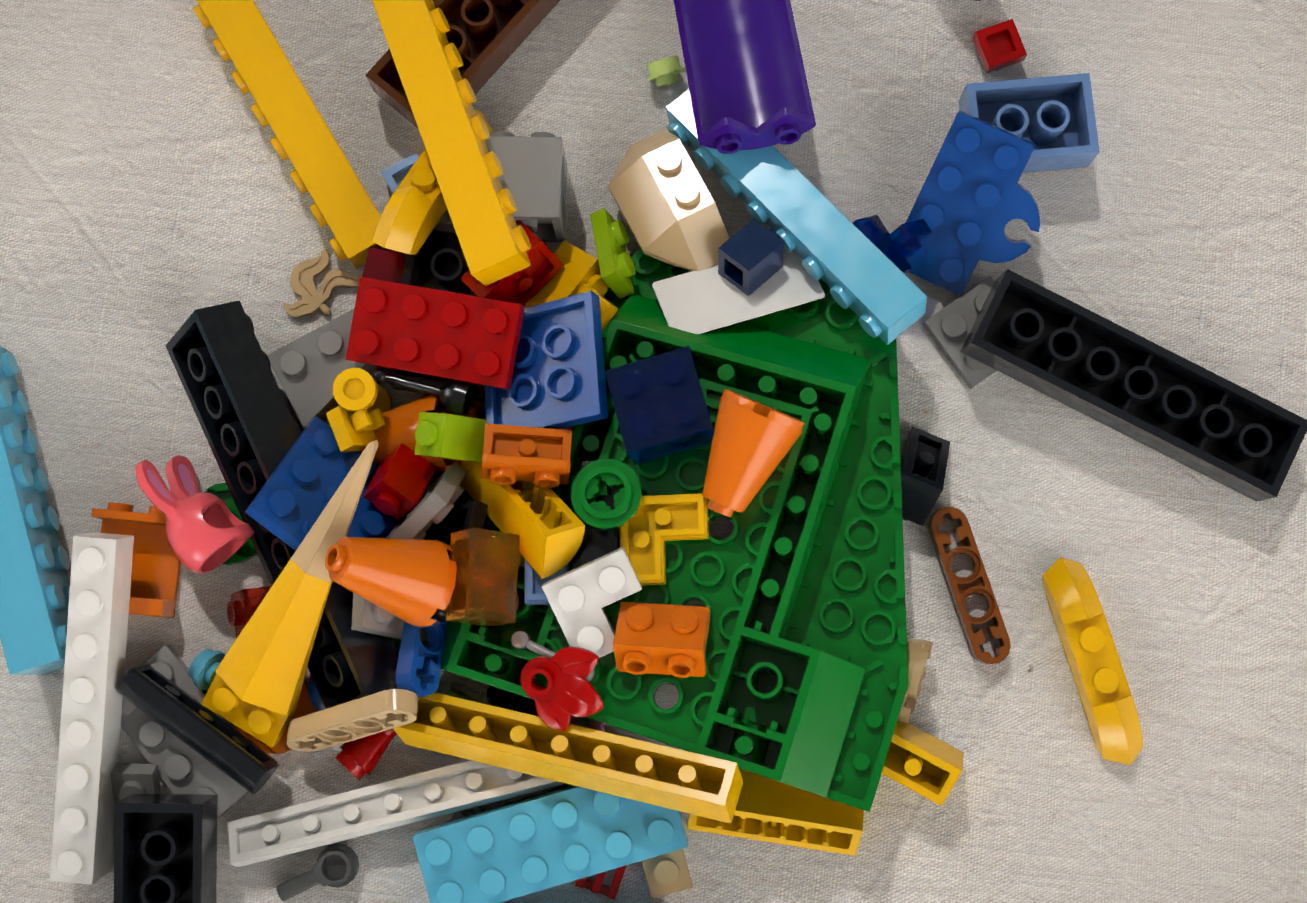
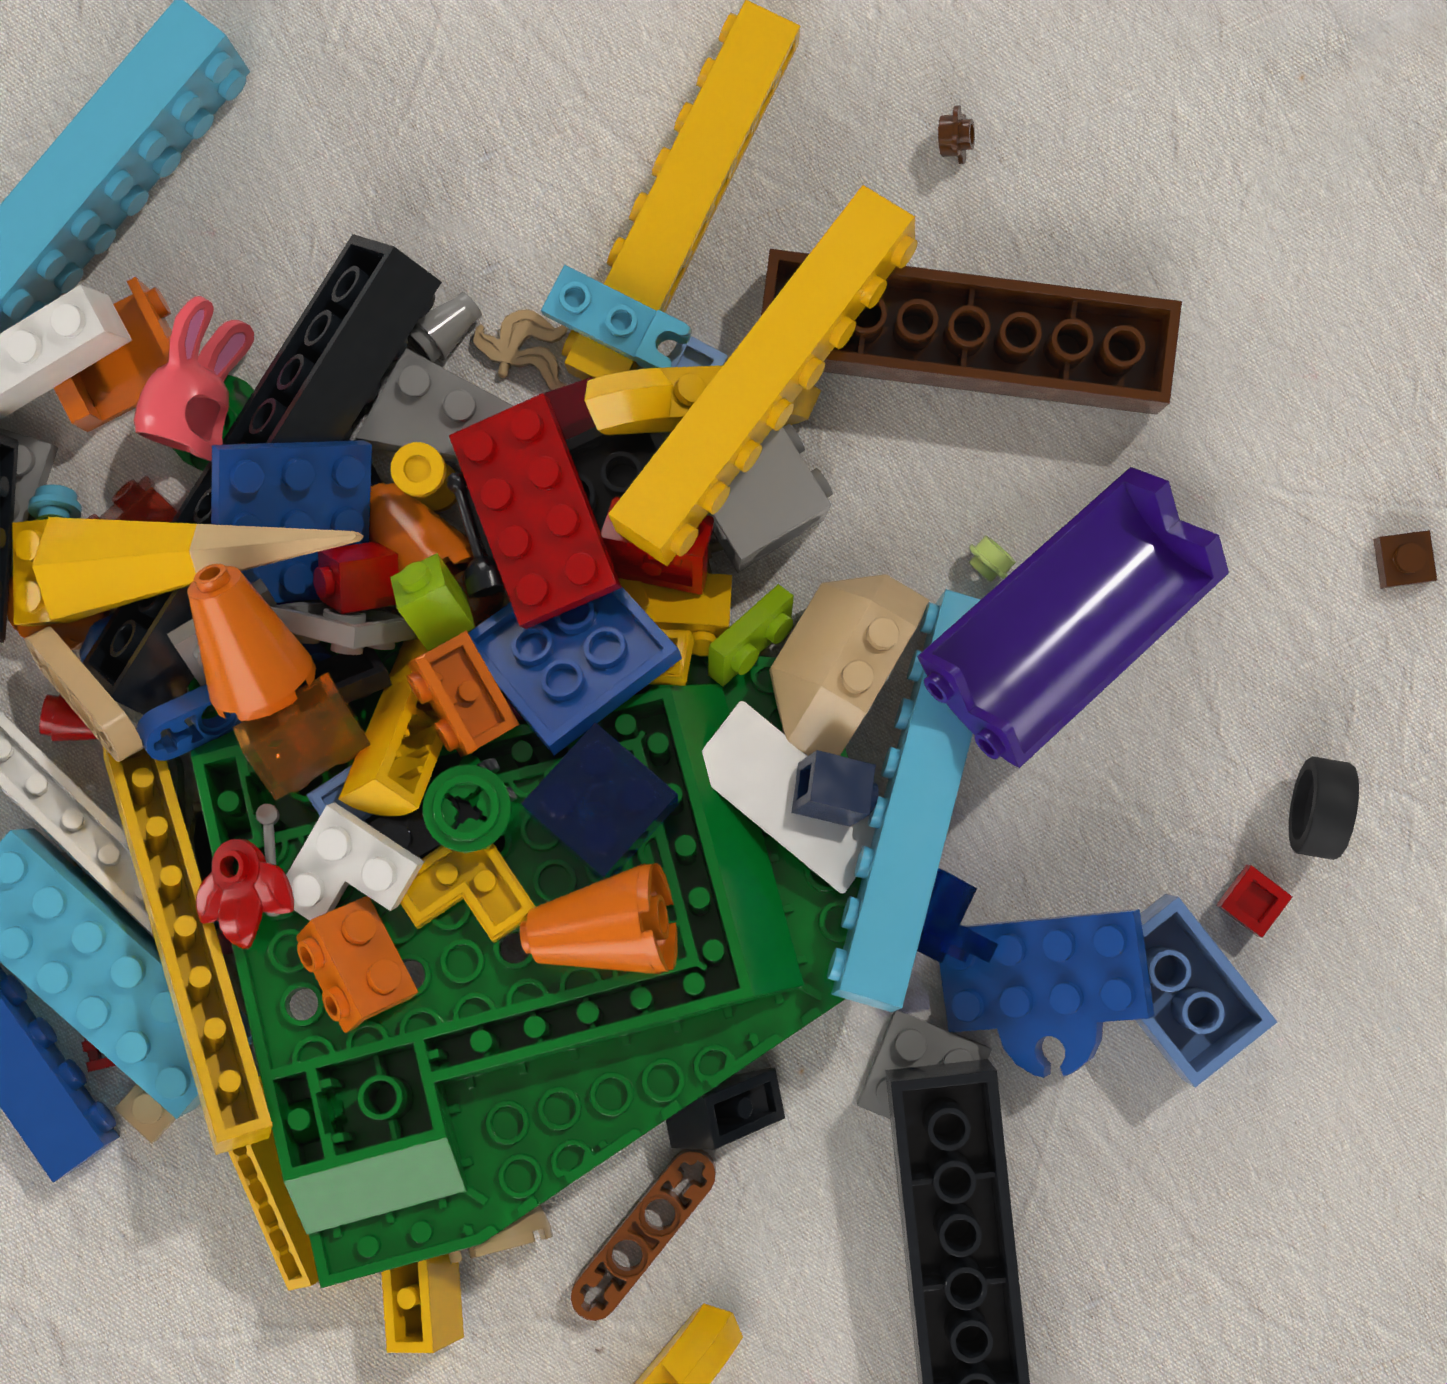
camera: 55 degrees right, 5 degrees up
(269, 324) = (443, 327): none -> light grey cone
(341, 206) = (613, 318): none -> medium azure plate
(354, 429) = (379, 494): yellow tile -> none

